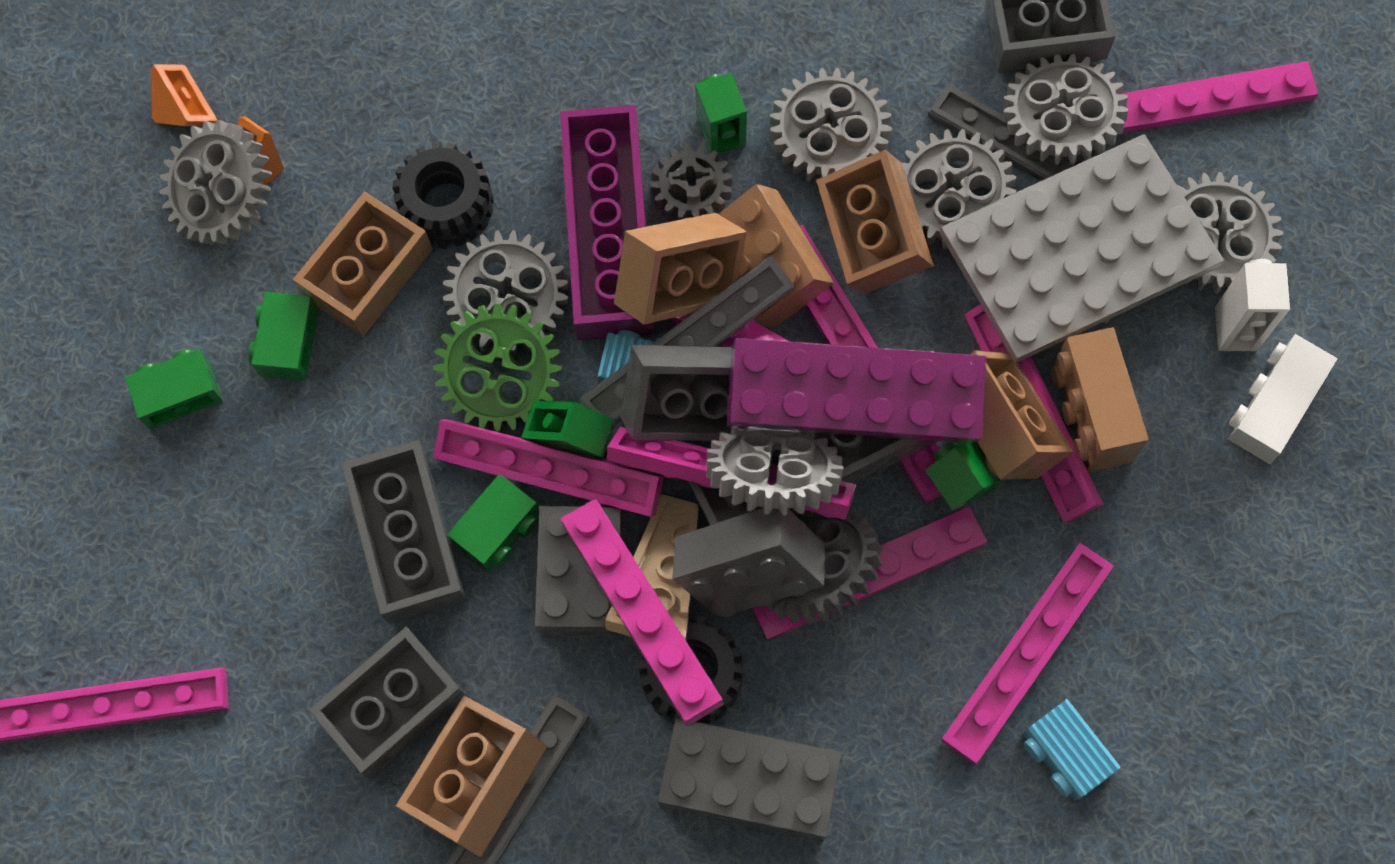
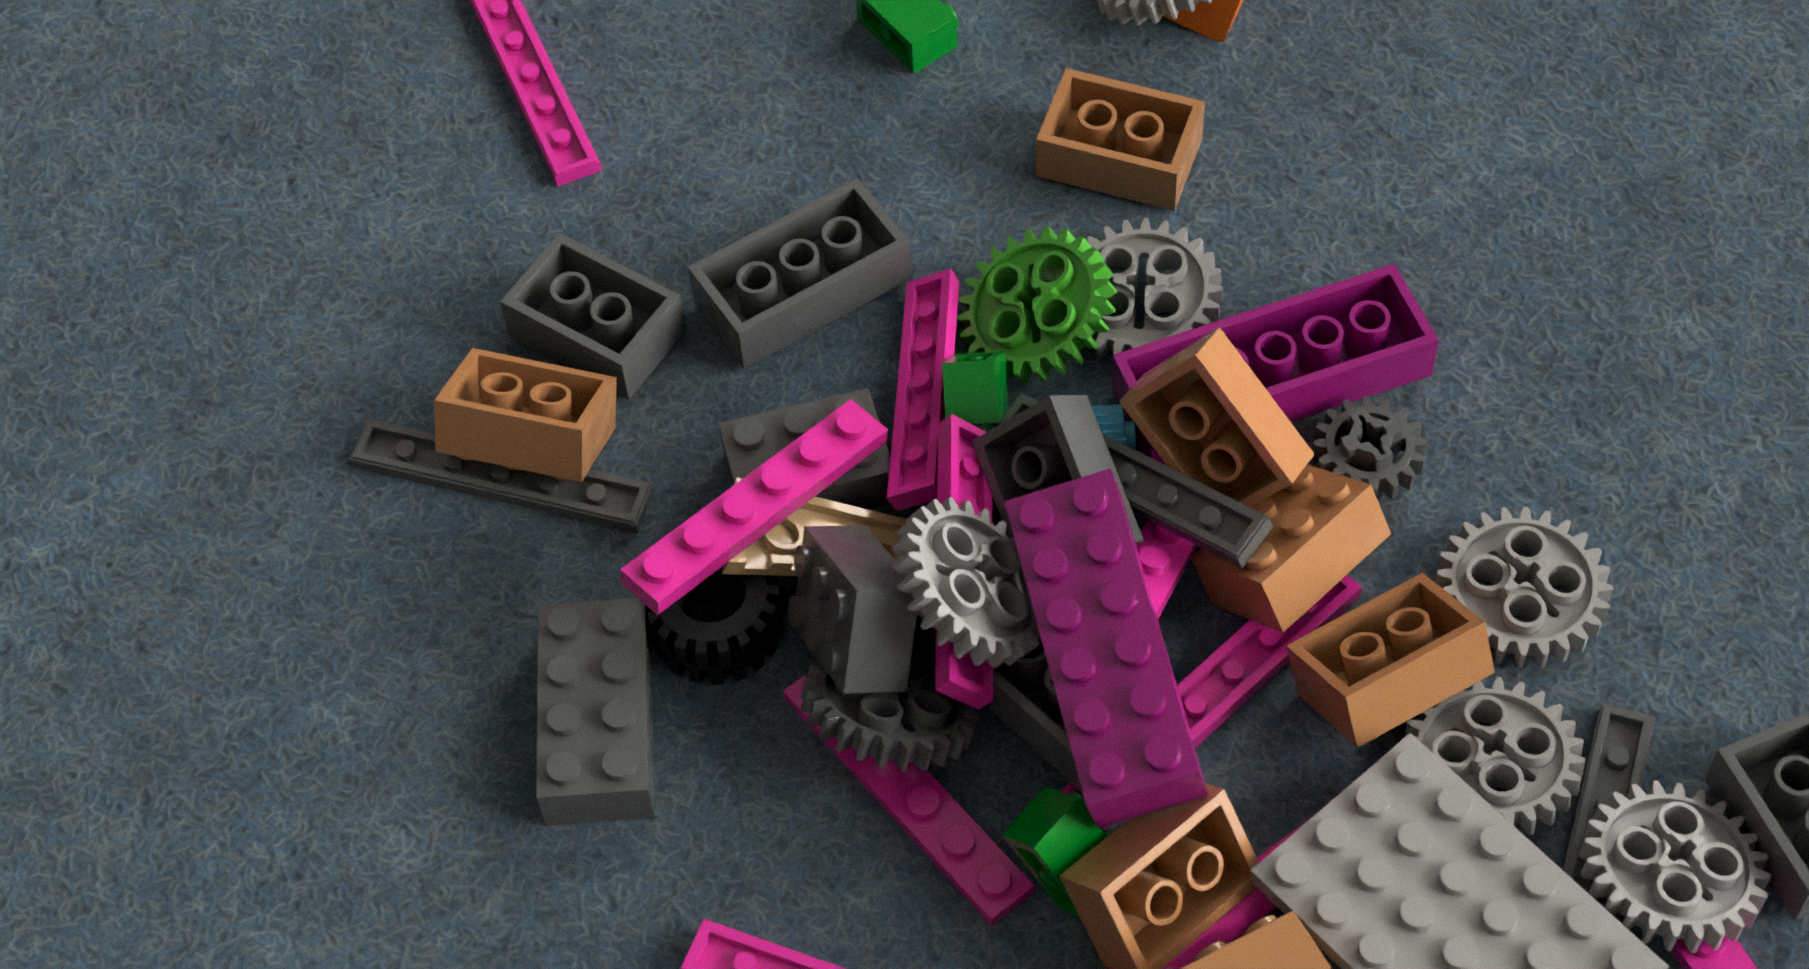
camera: 75 degrees right, 15 degrees down
(283, 336) = (1003, 96): green brick -> none
(441, 167) = (1234, 220): black tyre -> none
(495, 524) = (840, 358): green brick -> none
(721, 113) = (1473, 443): green brick -> none

